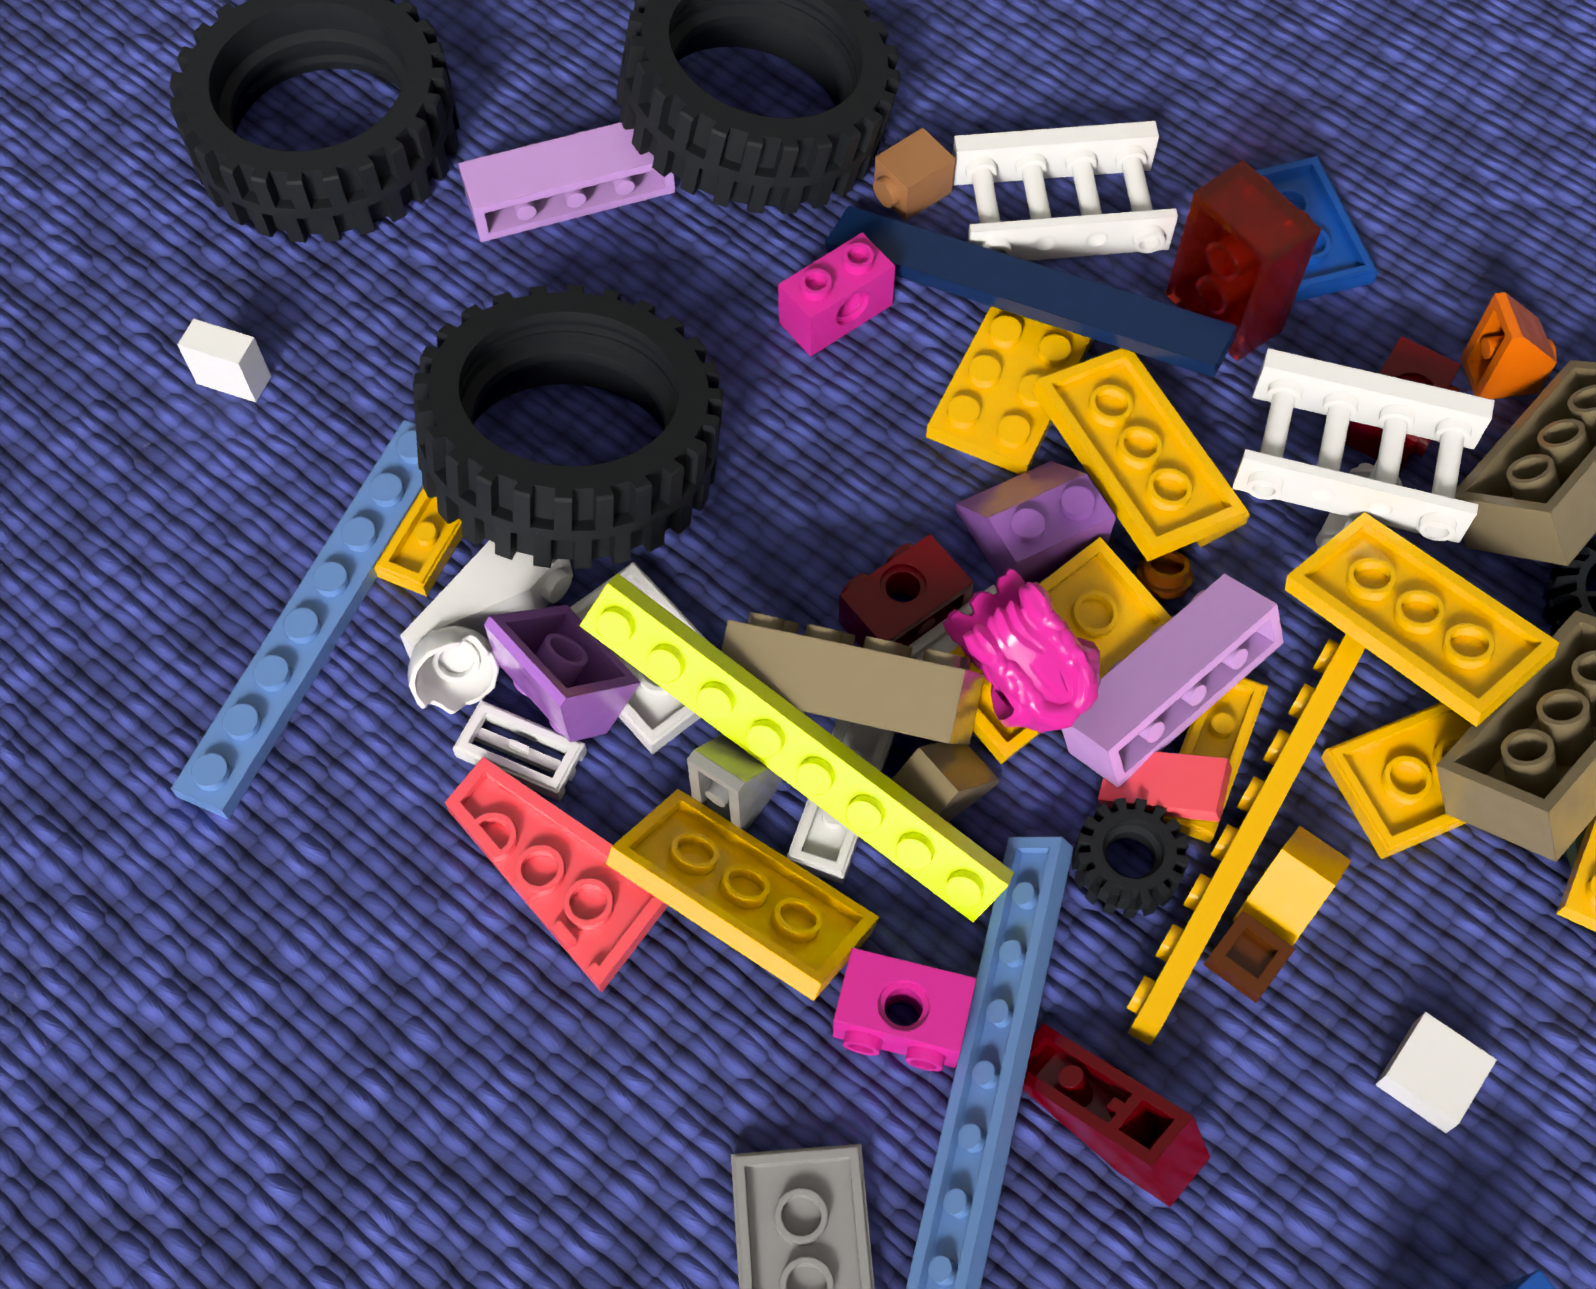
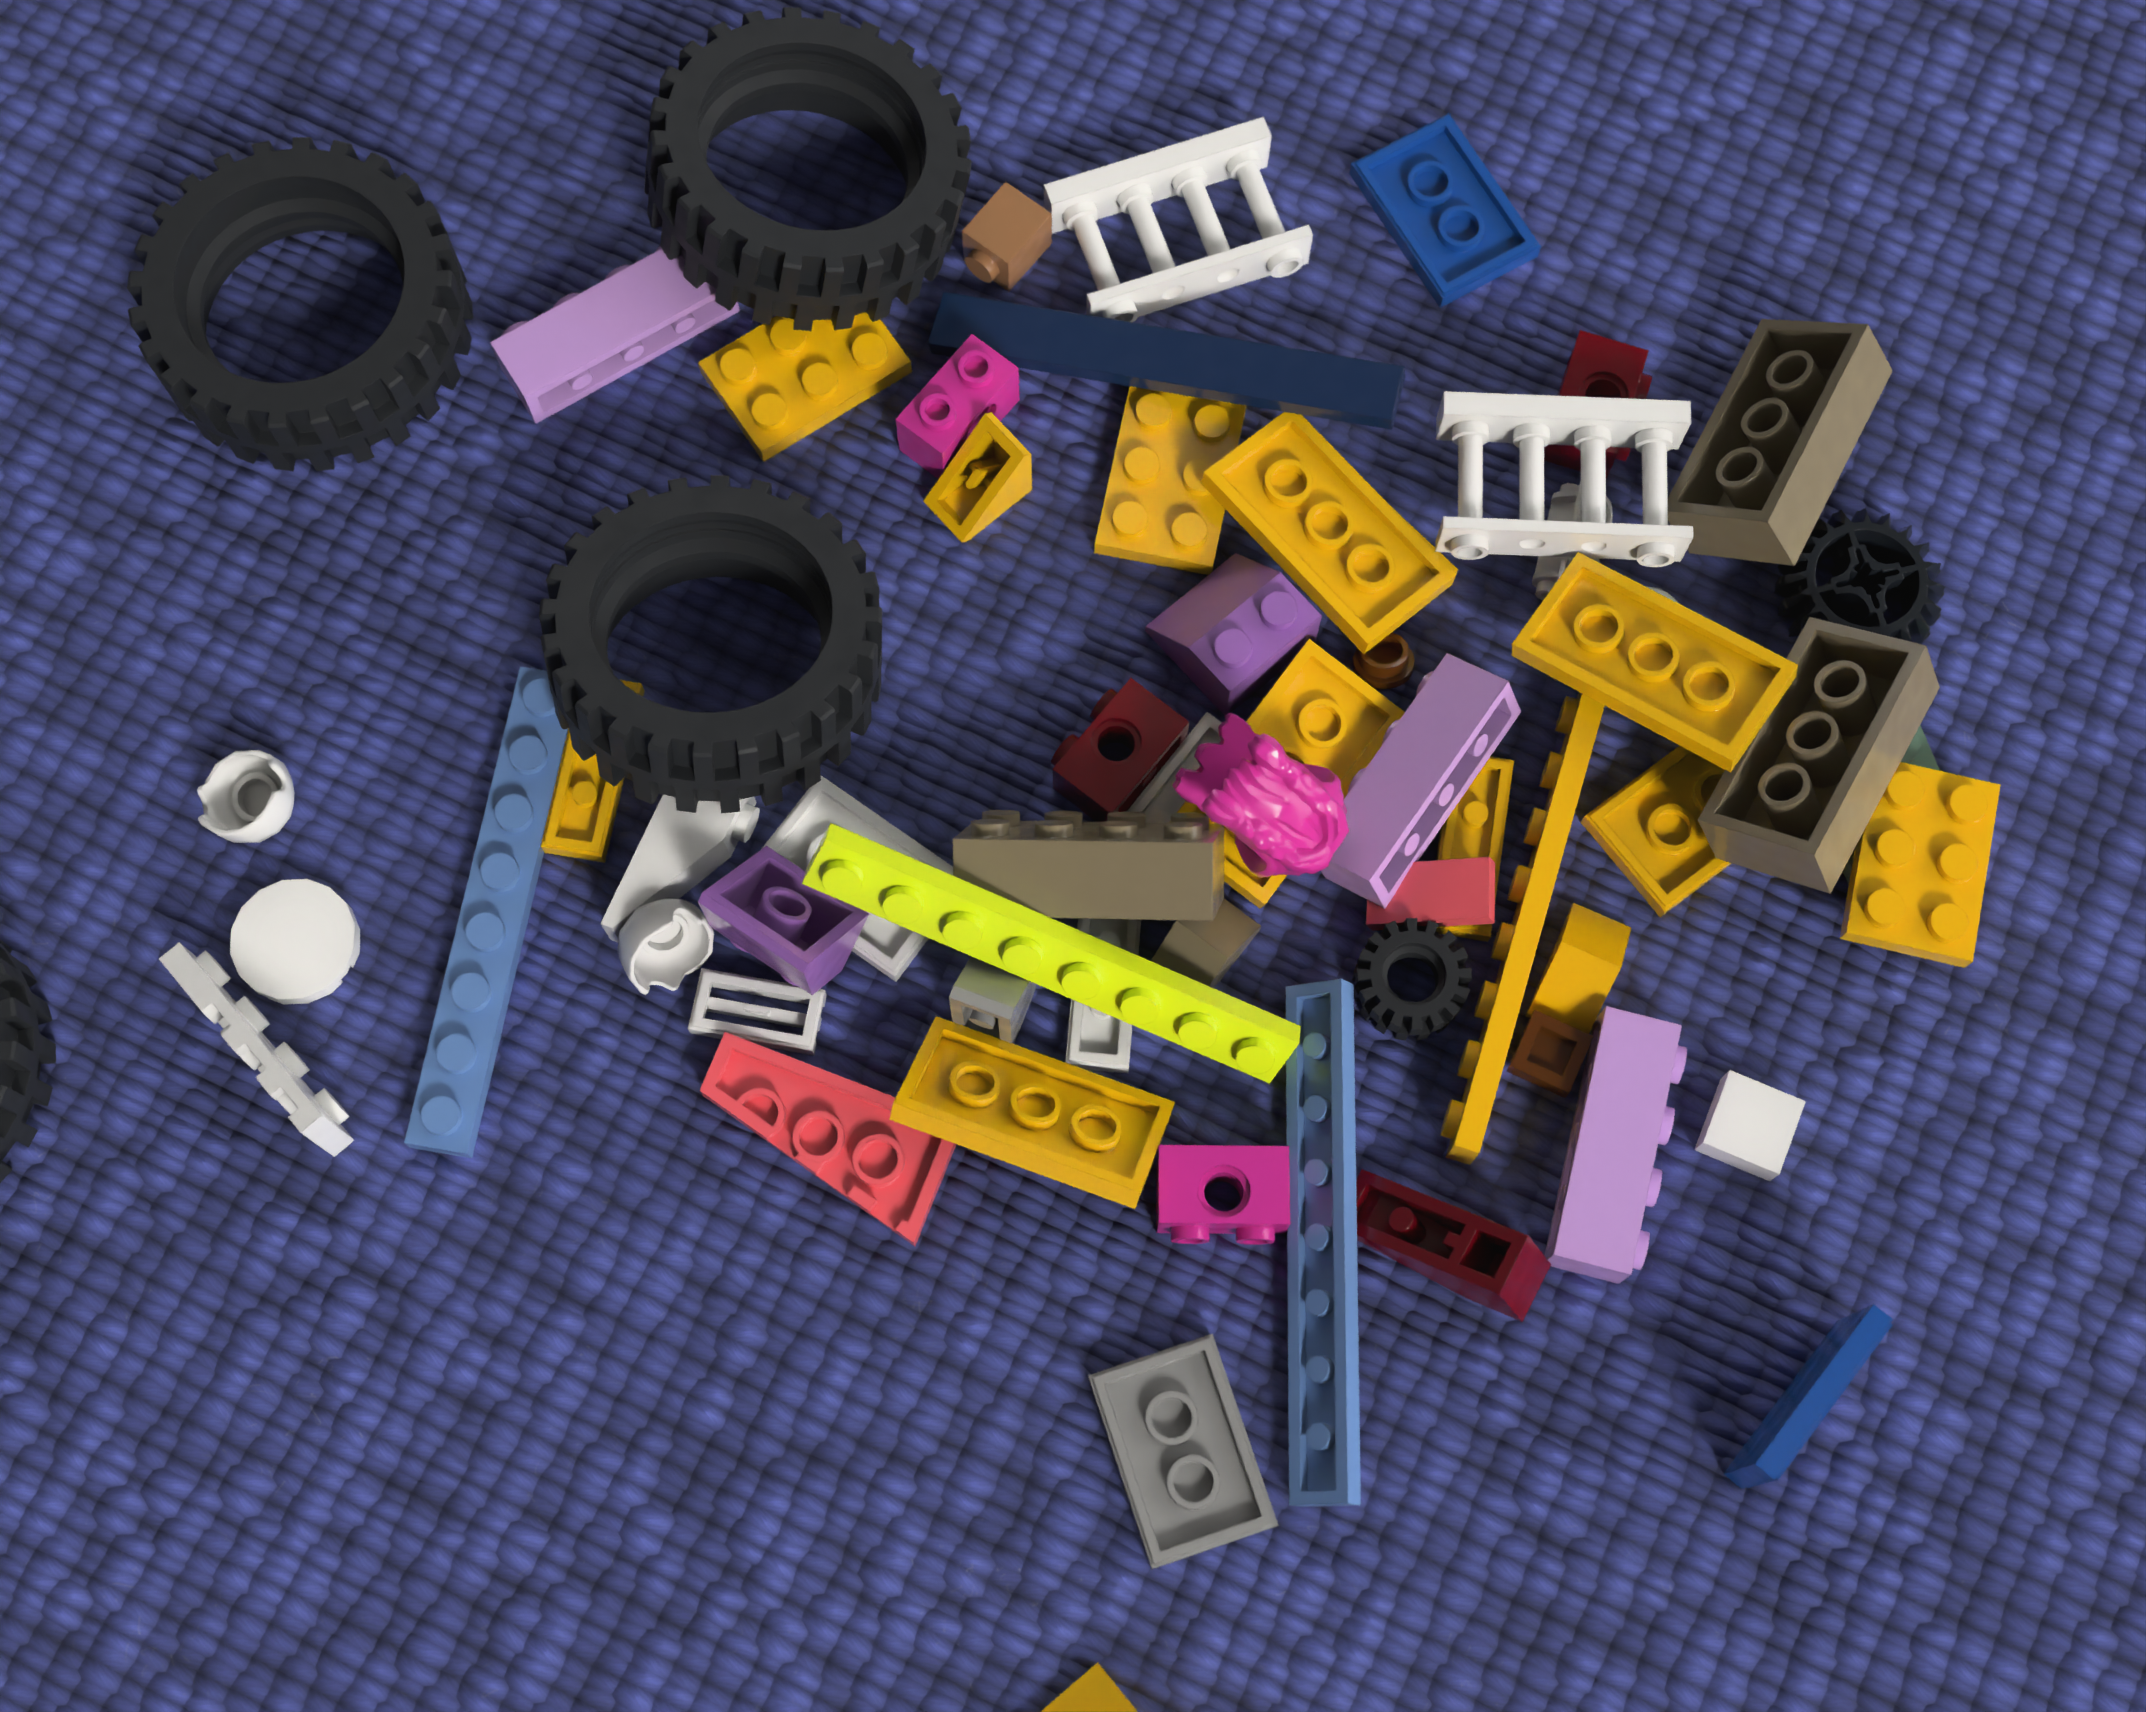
camera: 15 degrees left, 10 degrees up
(75, 694) = (281, 1068): none -> white wing
(139, 472) = (247, 797): none -> white hair
(139, 600) = (295, 941): none -> white tile
(224, 360) = (298, 643): white piece -> none
(712, 248) = (795, 381): none -> yellow plate
(842, 353) = (981, 480): none -> yellow slope
(1242, 256) = (1394, 281): clear red brick -> none
(1295, 1060) = (1614, 1146): none -> lavender brick
(1508, 351) = (1695, 320): orange slope -> none

